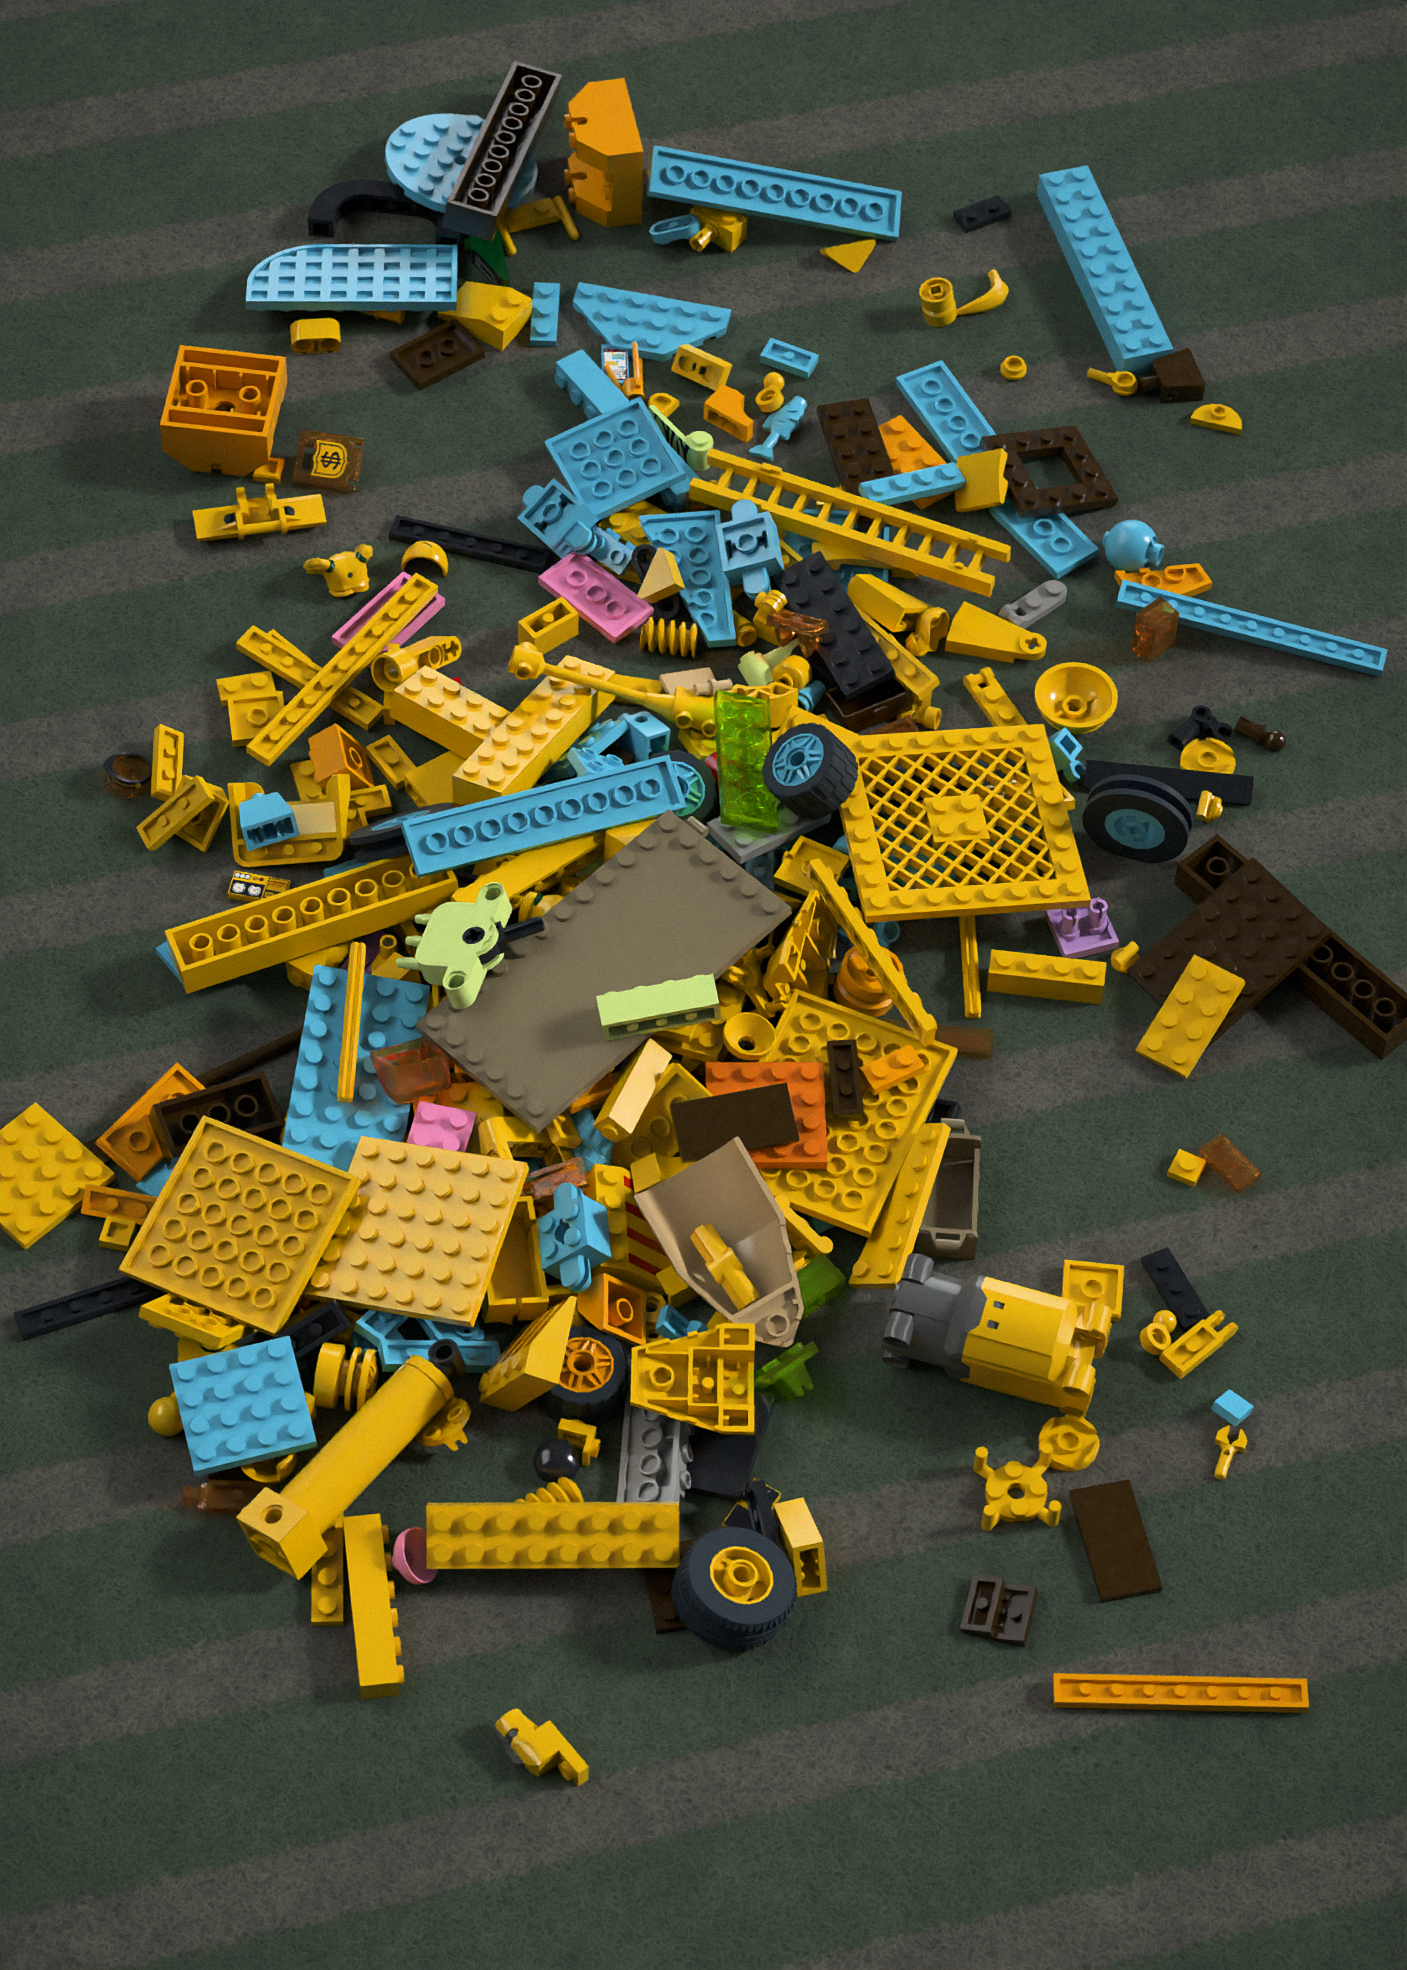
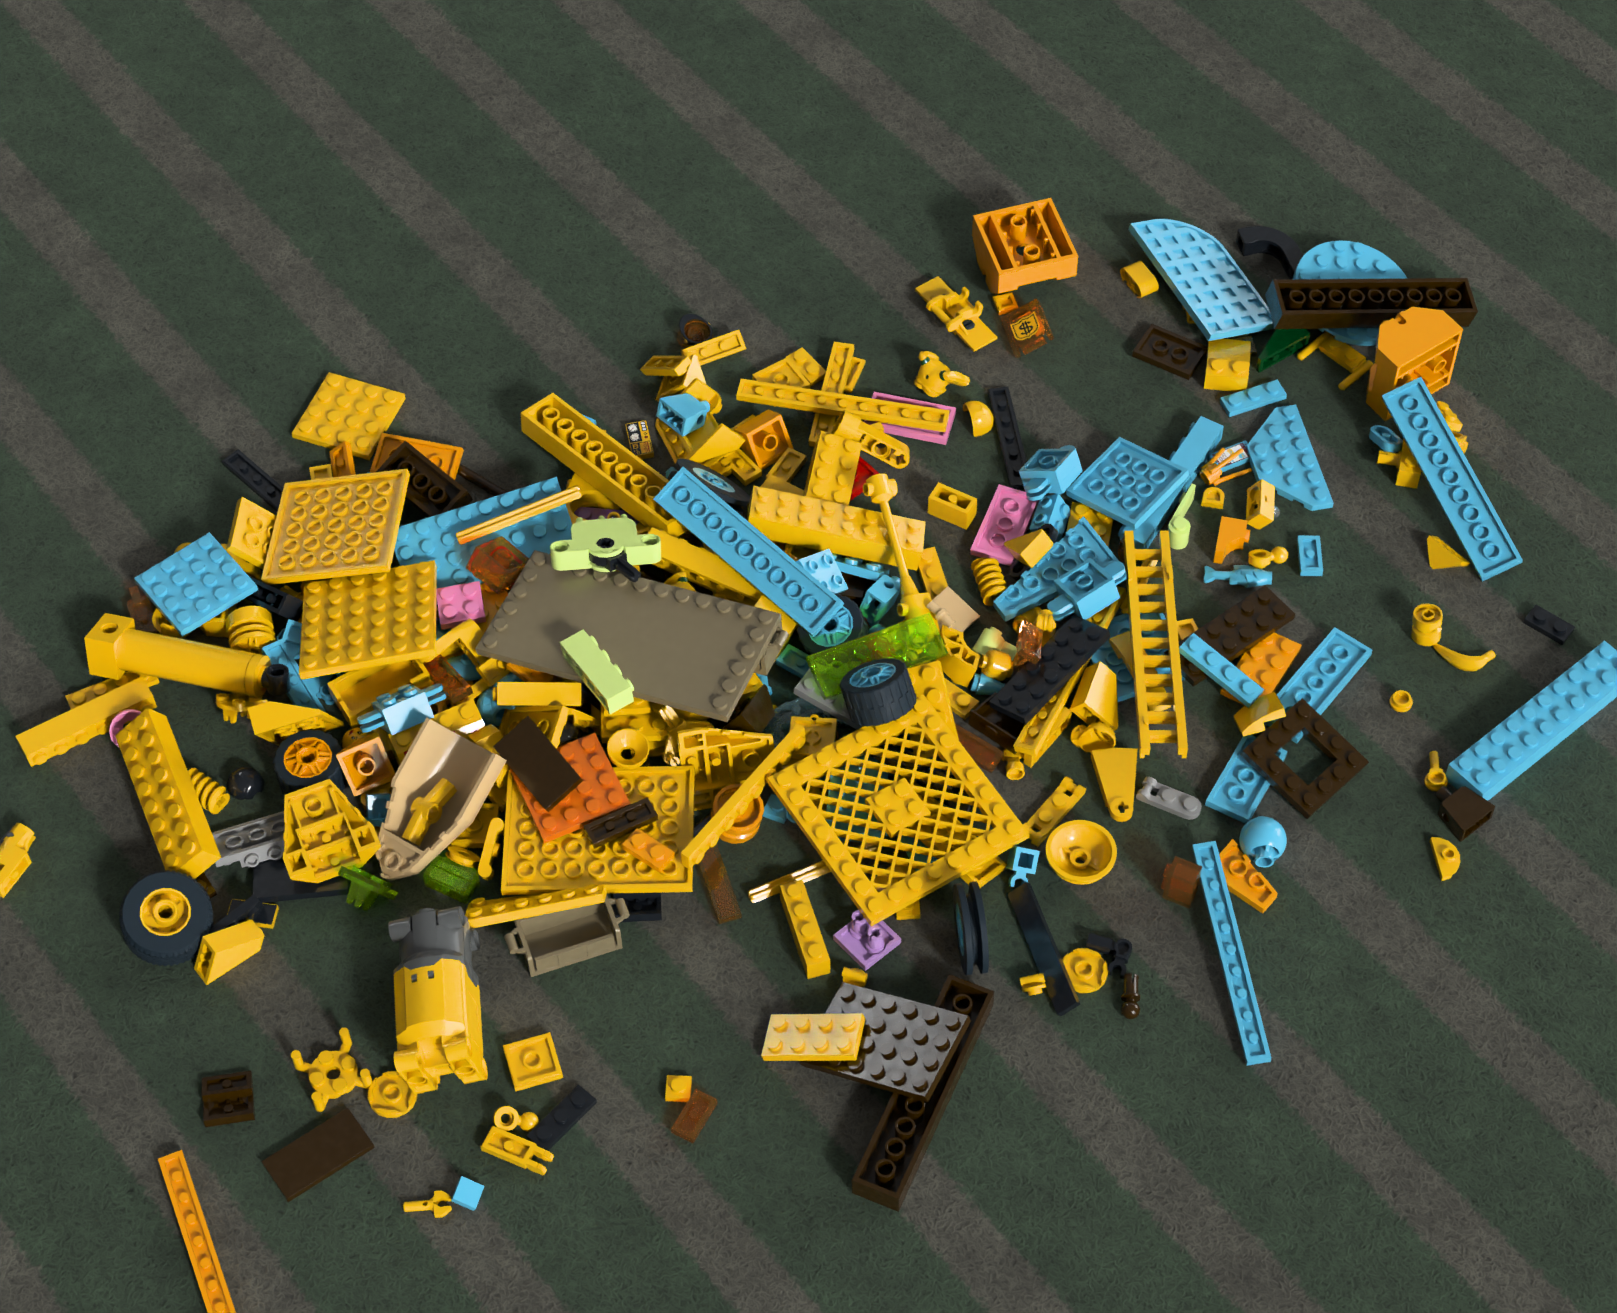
camera: 70 degrees right, 0 degrees up
(580, 1436) = (266, 794): yellow bracket -> none

